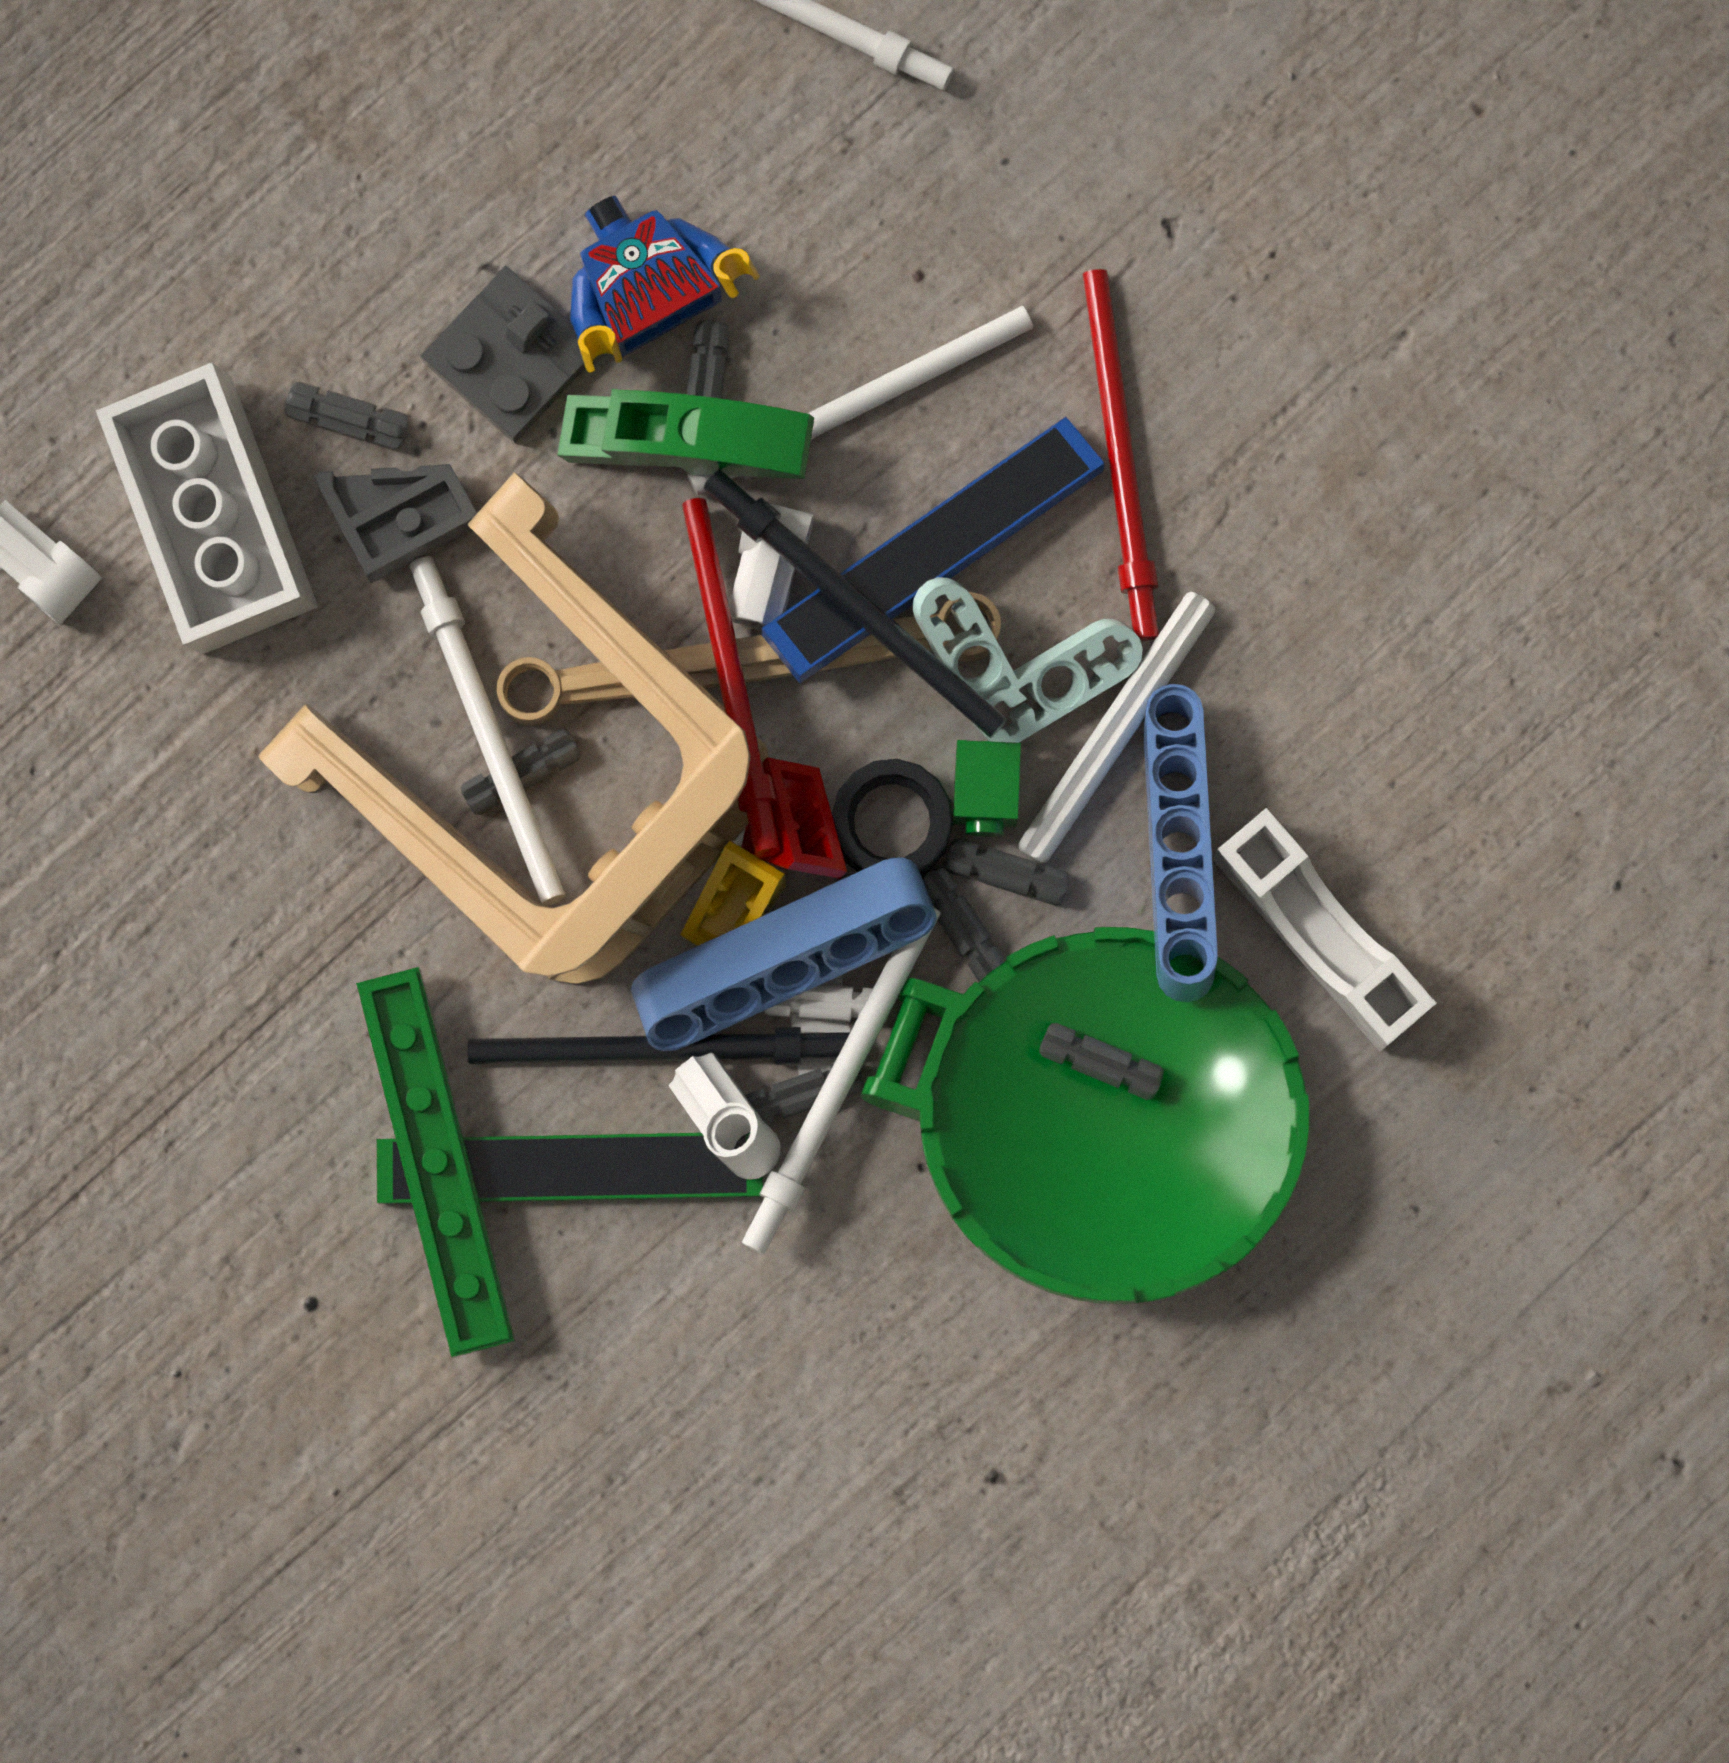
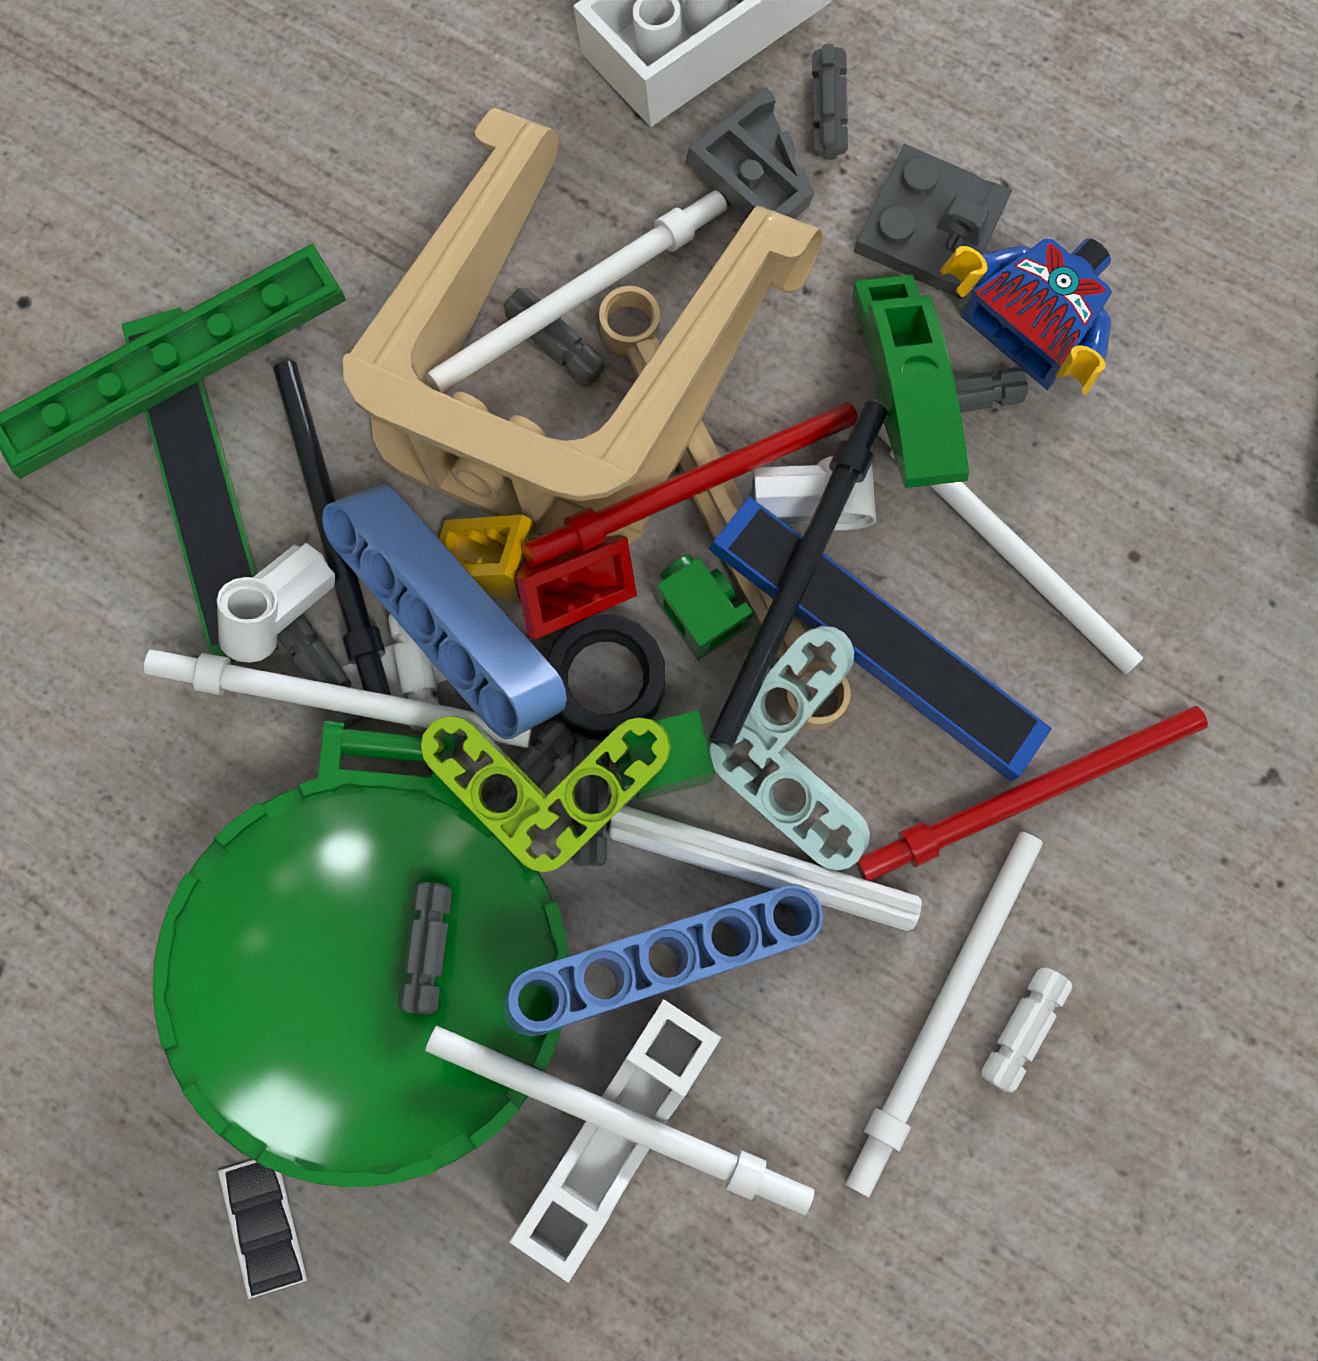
camera: 70 degrees right, 5 degrees down
(848, 709) = (701, 605): none -> green brick
(1004, 919) = (532, 805): none -> lime beam
(1307, 1283) = (262, 1228): none -> sticker
(1335, 534) = (1026, 1029): none -> white axle
(1384, 688) = (888, 1126): none -> white bar
(1387, 830) = (742, 1172): none -> white bar

